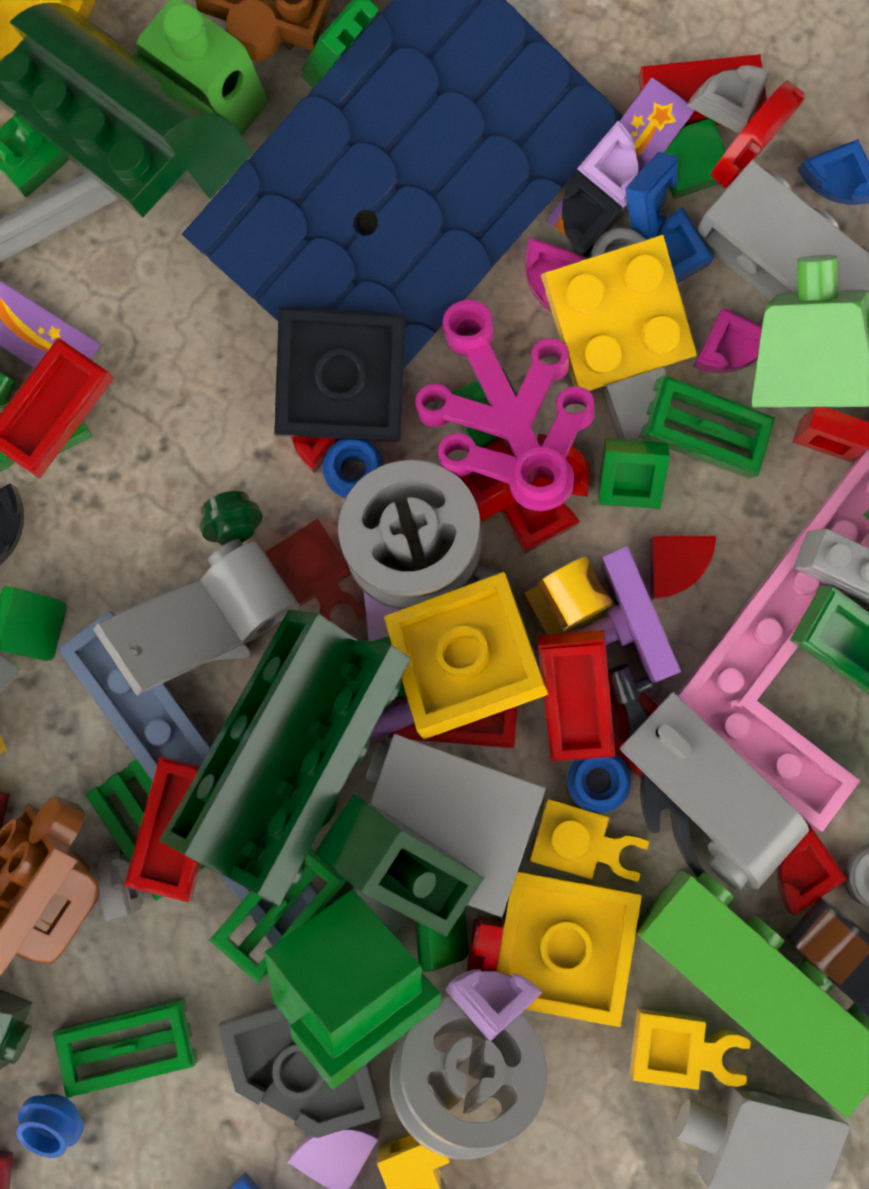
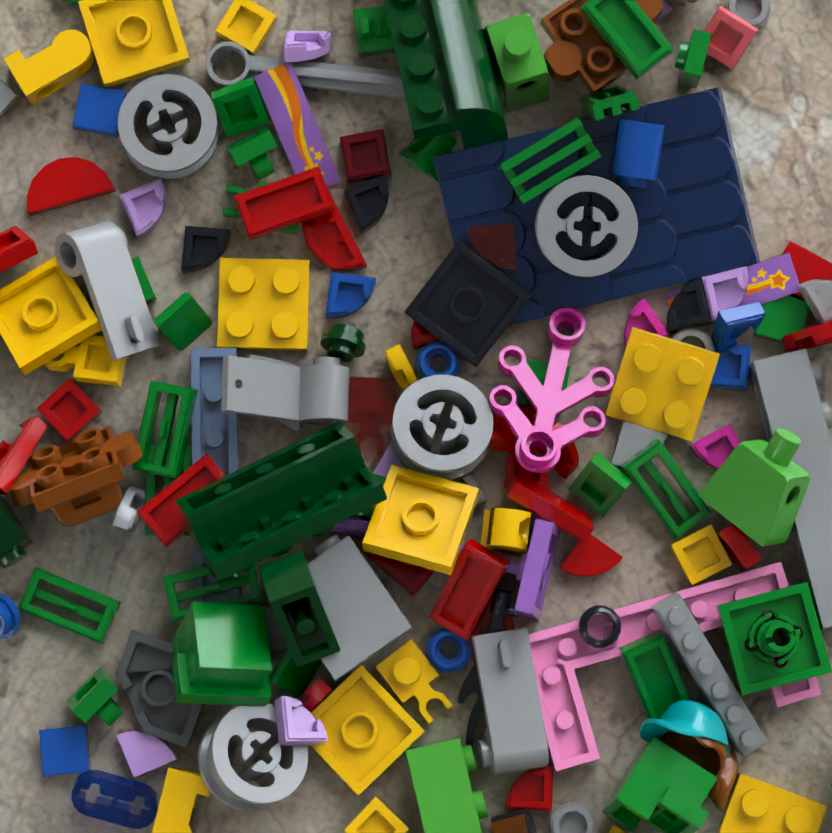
camera: 40 degrees right, 0 degrees up
(108, 297) = (365, 155): none -> dark red tile
(108, 540) = (263, 304): none -> yellow plate
(112, 752) = (181, 432): none -> green tile
(138, 417) = (332, 242): none -> red tile
(147, 345) = (368, 202): none -> black tile
(167, 247) = (420, 153): none -> green tile
(197, 462) = (348, 294): none -> blue tile
(234, 1137) = (95, 697): none -> green tile
(313, 500) = (400, 367): none -> yellow tile
(323, 284) = (495, 244): none -> clear red tile
(339, 95) = (583, 141): none -> green tile
(410, 62) = (637, 152): none -> blue brick
(451, 164) = (622, 227): none -> light grey wheel
(595, 536) = (548, 506): none -> red tile
(774, 627) = (583, 626): none -> black piece
(796, 473) = (700, 555): none -> yellow tile

